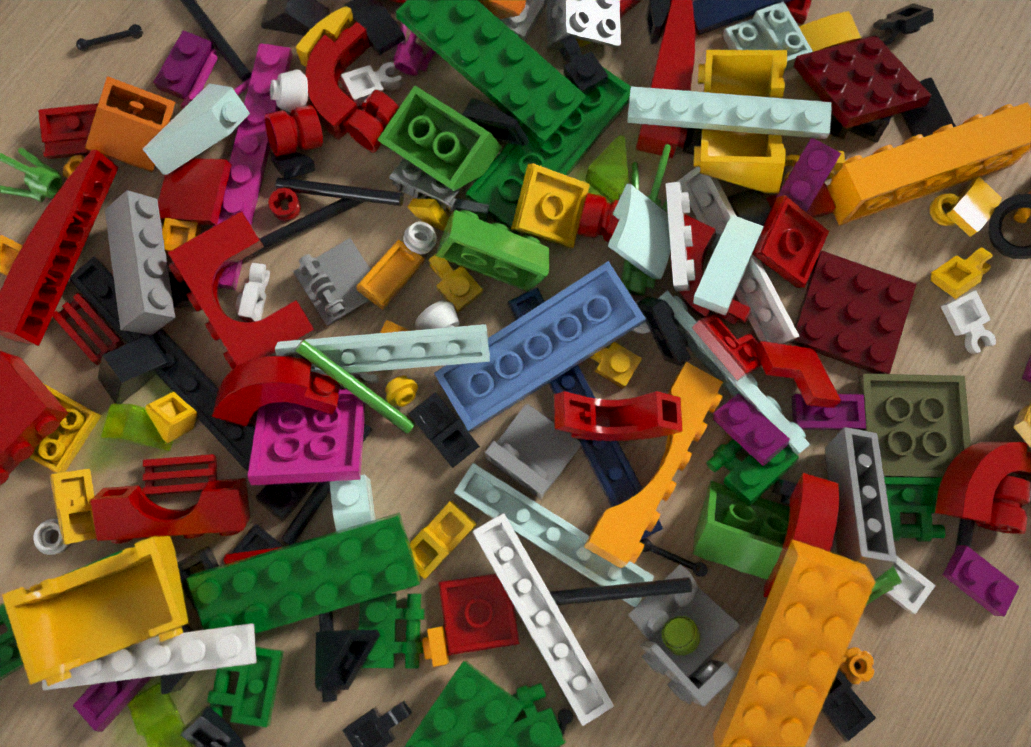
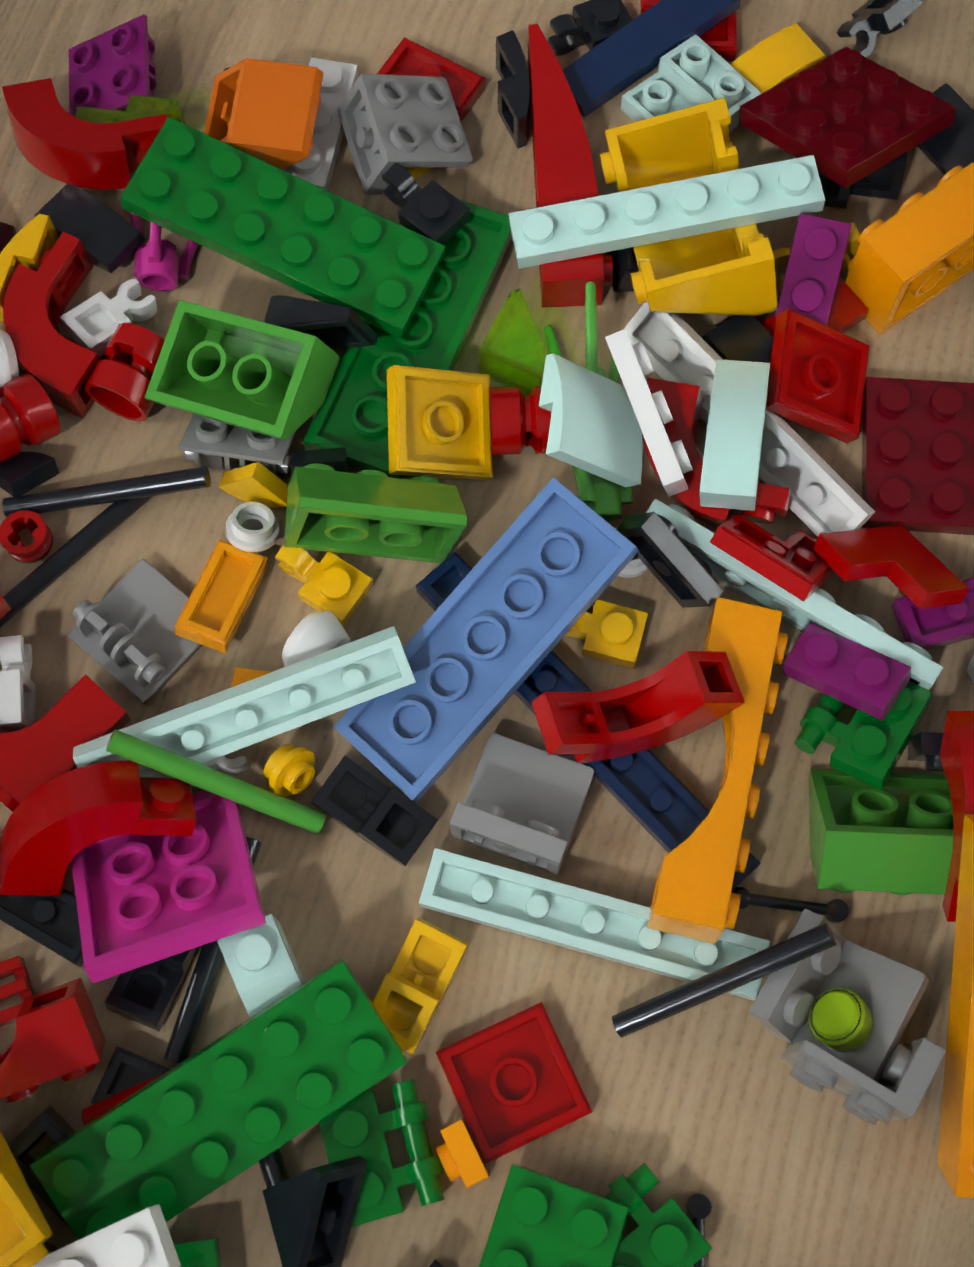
camera: 10 degrees left, 5 degrees down
(543, 619) = (618, 1061): white plate -> none

